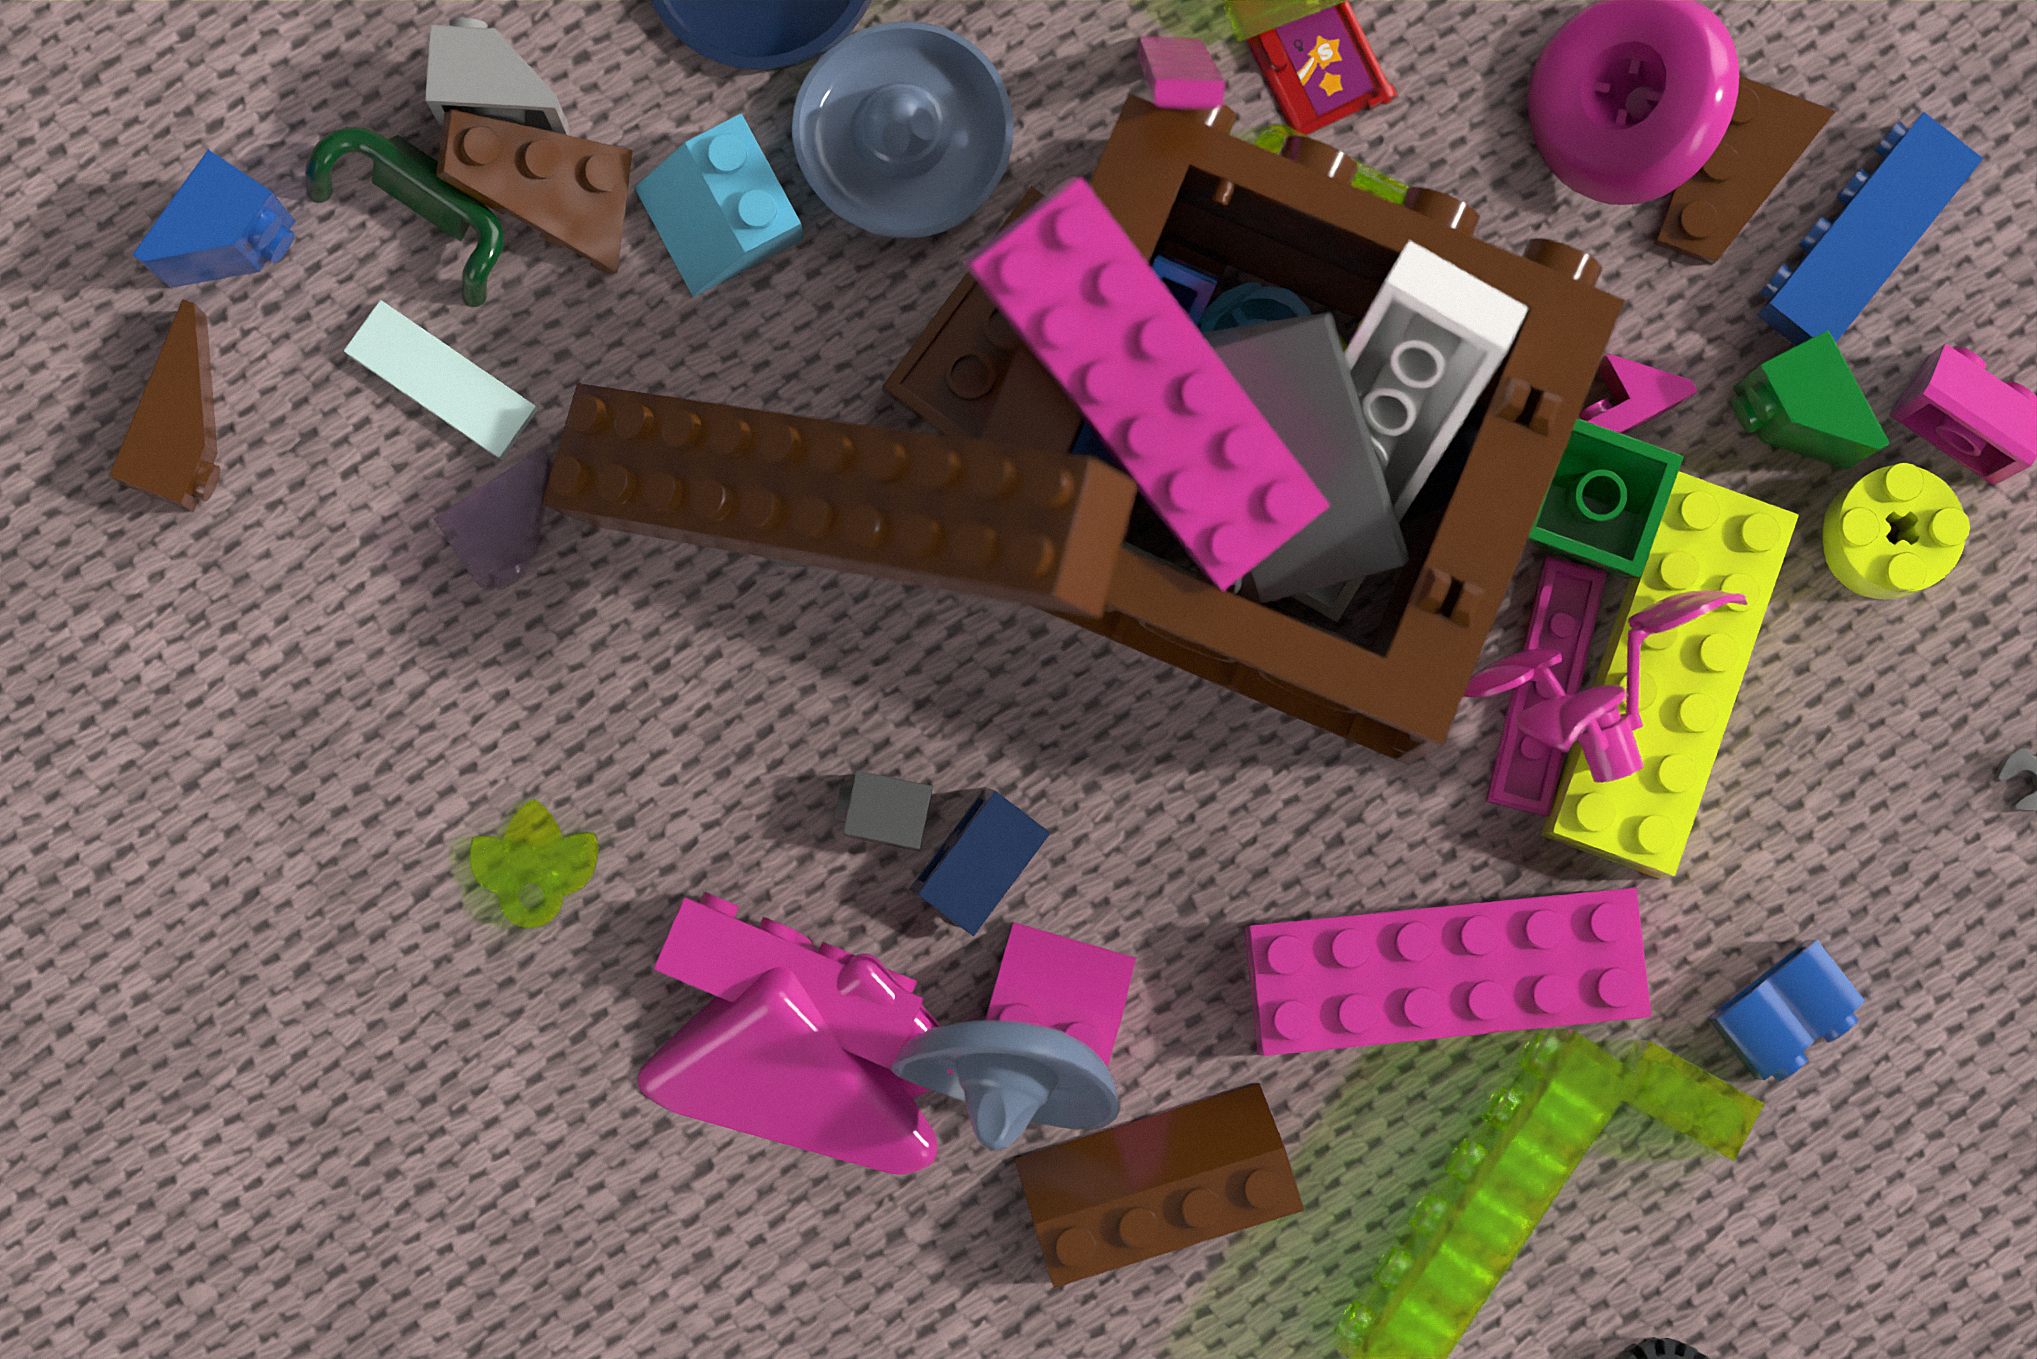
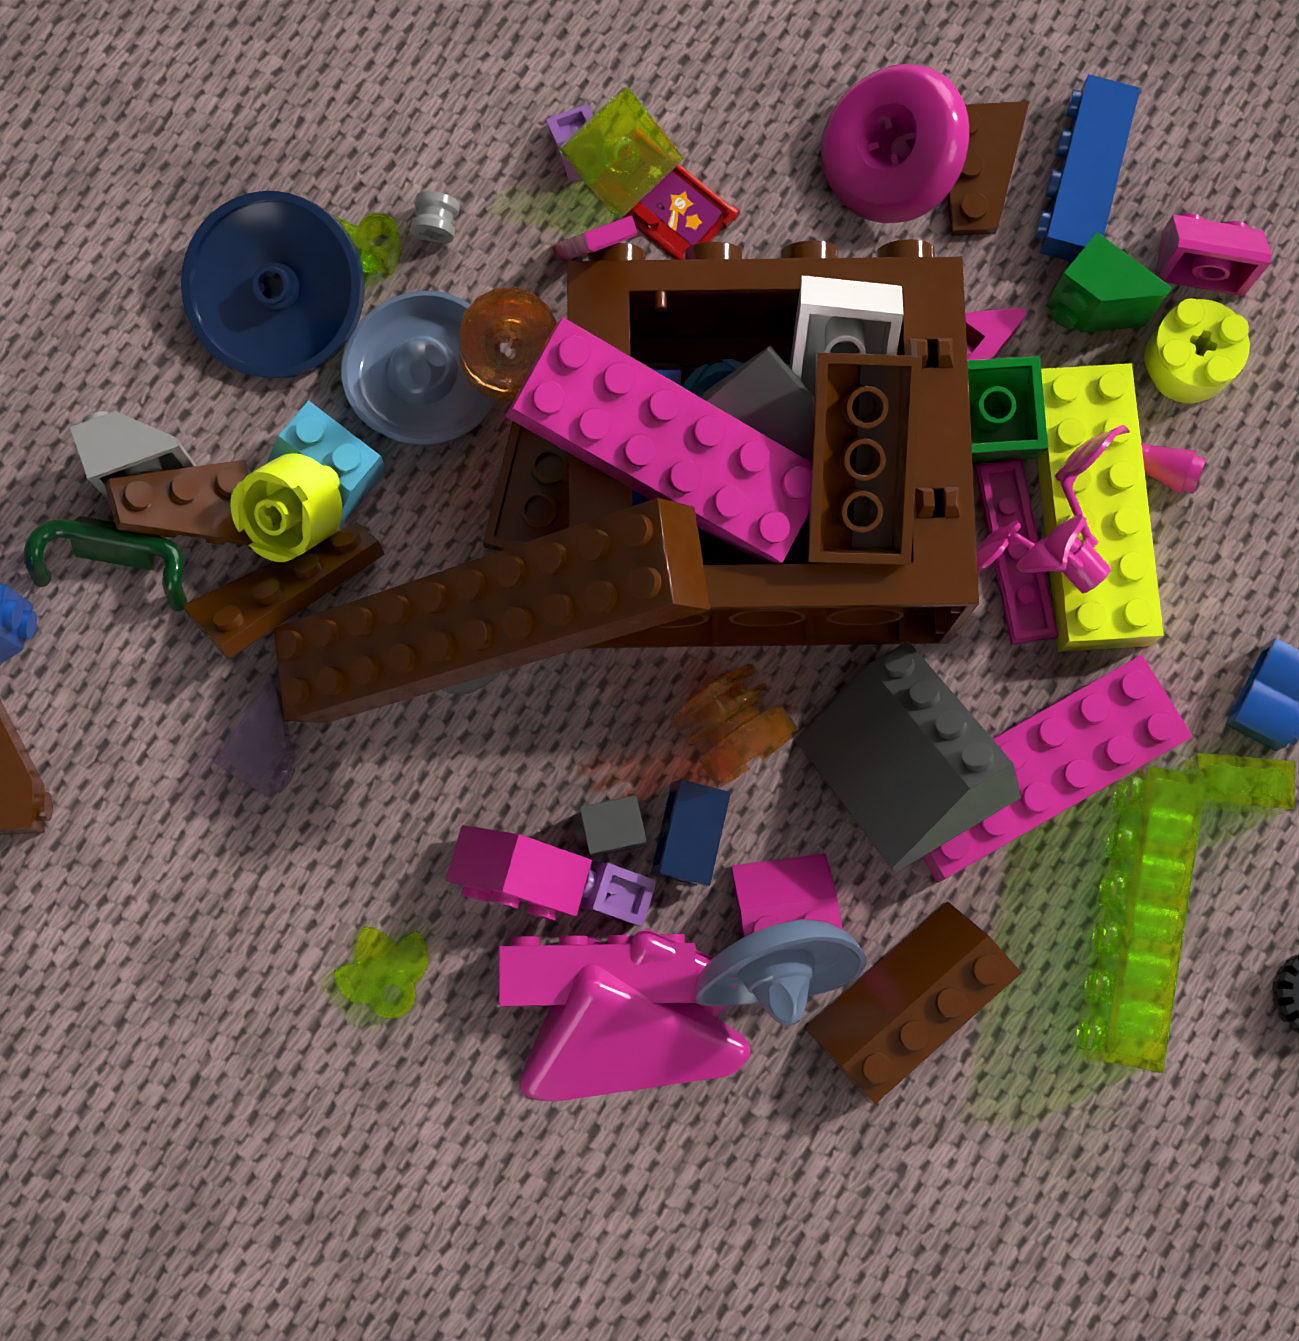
camera: 15 degrees left, 5 degrees down
(441, 380) = (178, 668): light aqua tile -> none
(589, 339) = (272, 594): none -> reddish brown wing
(658, 238) = (287, 506): none -> neon yellow brick
(745, 813) = (517, 870): none -> dark pink brick
(854, 892) = (617, 893): none -> medium lavender bracket
(1024, 113) = (499, 318): none -> clear orange wheel
(1090, 751) = (733, 724): none -> clear orange wheel
(1283, 888) = (908, 758): none -> dark grey slope
(1378, 505) = (864, 458): none -> reddish brown slope
(1793, 666) = (1173, 467): none -> dark pink cone

